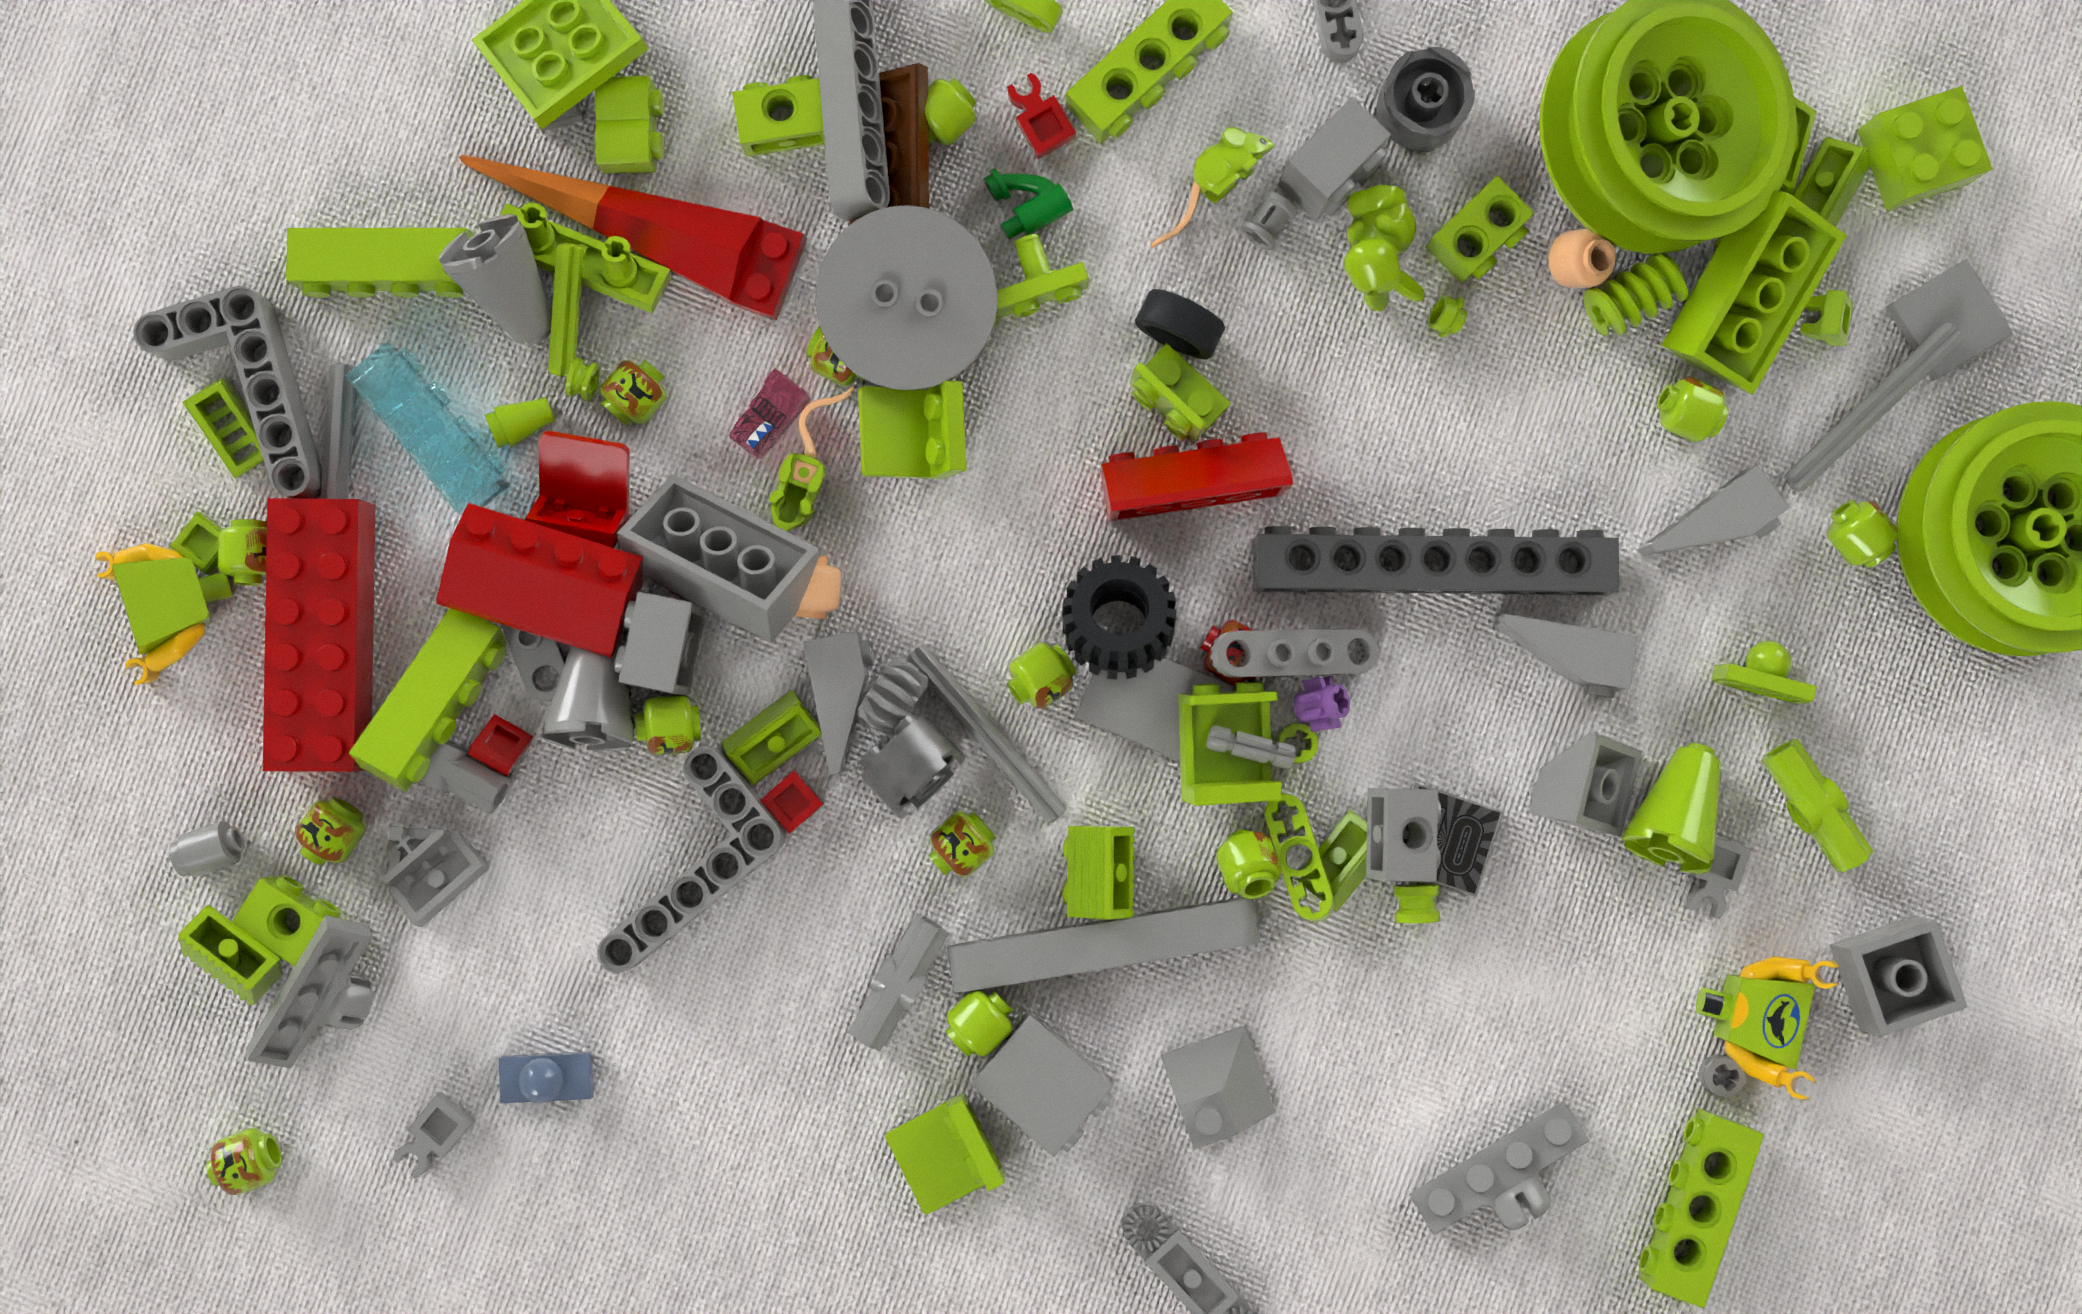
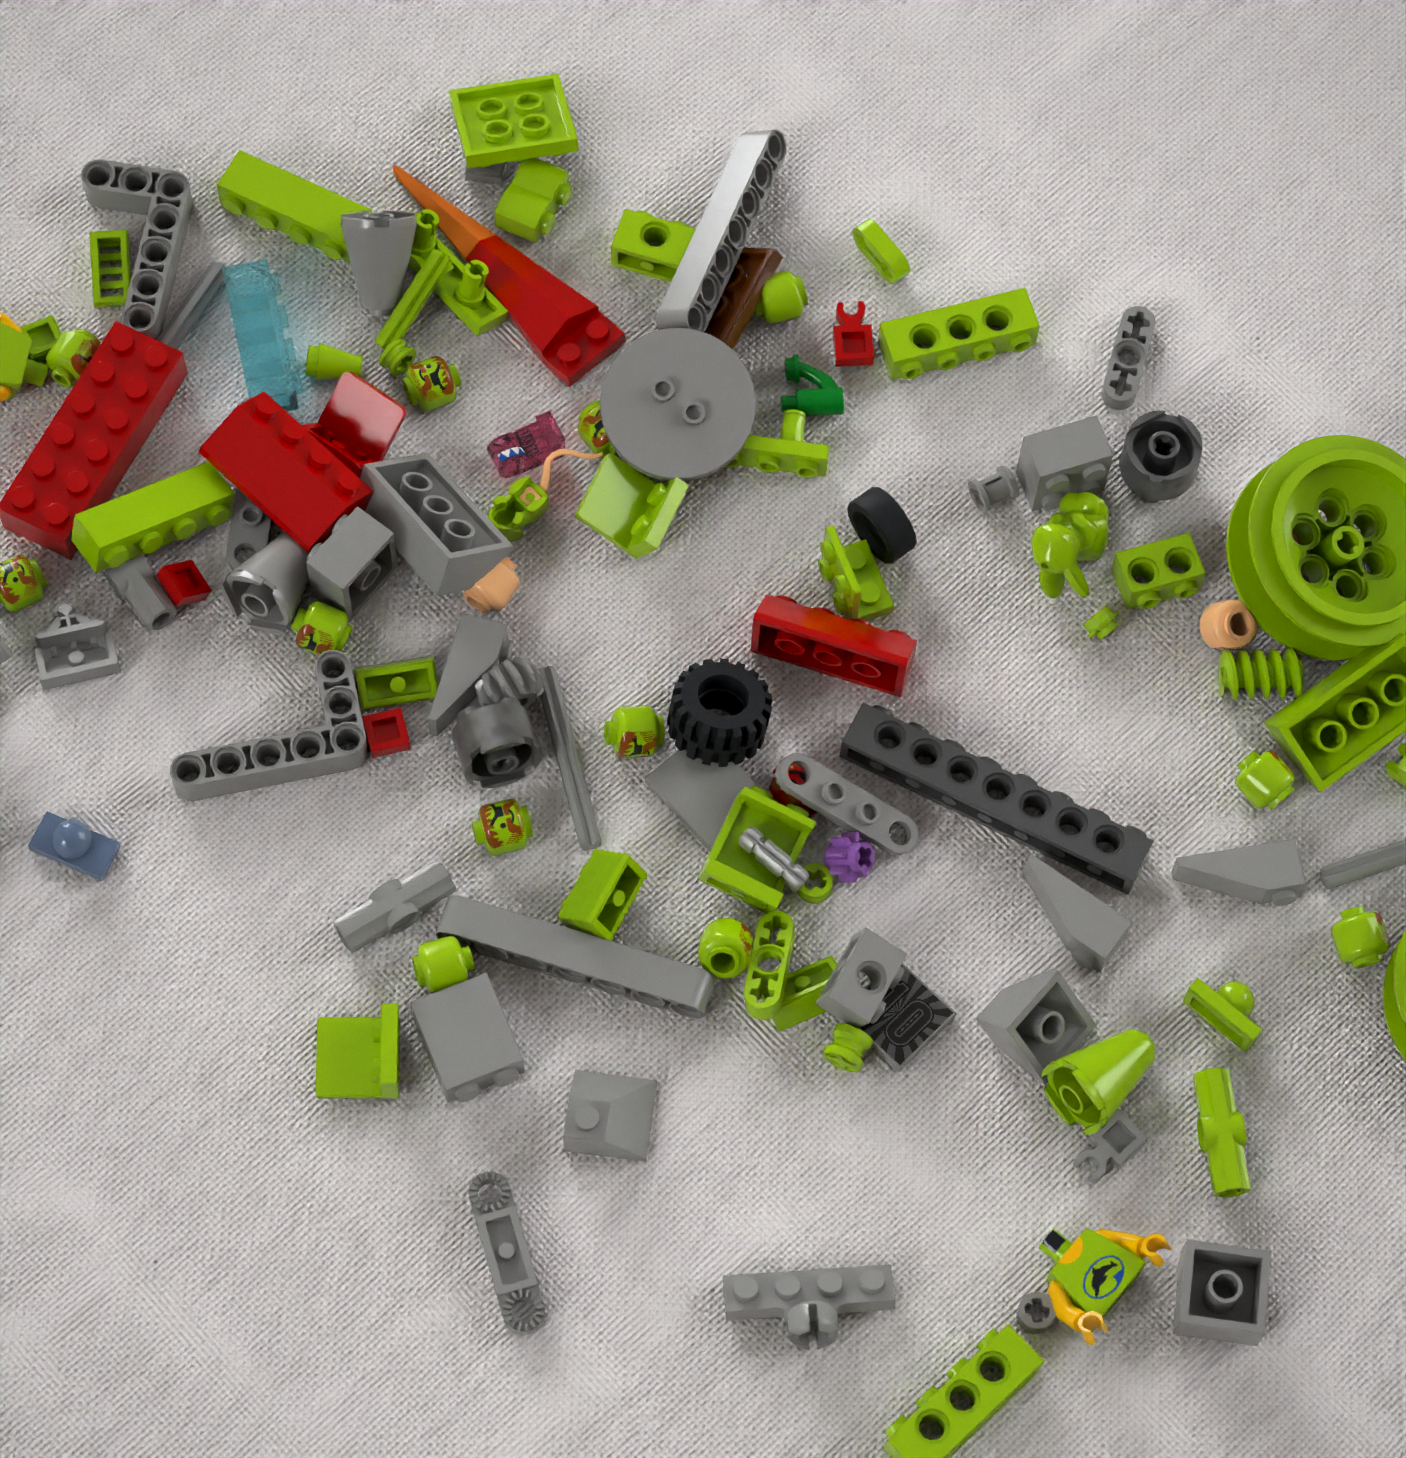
camera: 25 degrees right, 20 degrees down
(1220, 168) = (973, 435): lime animal -> none

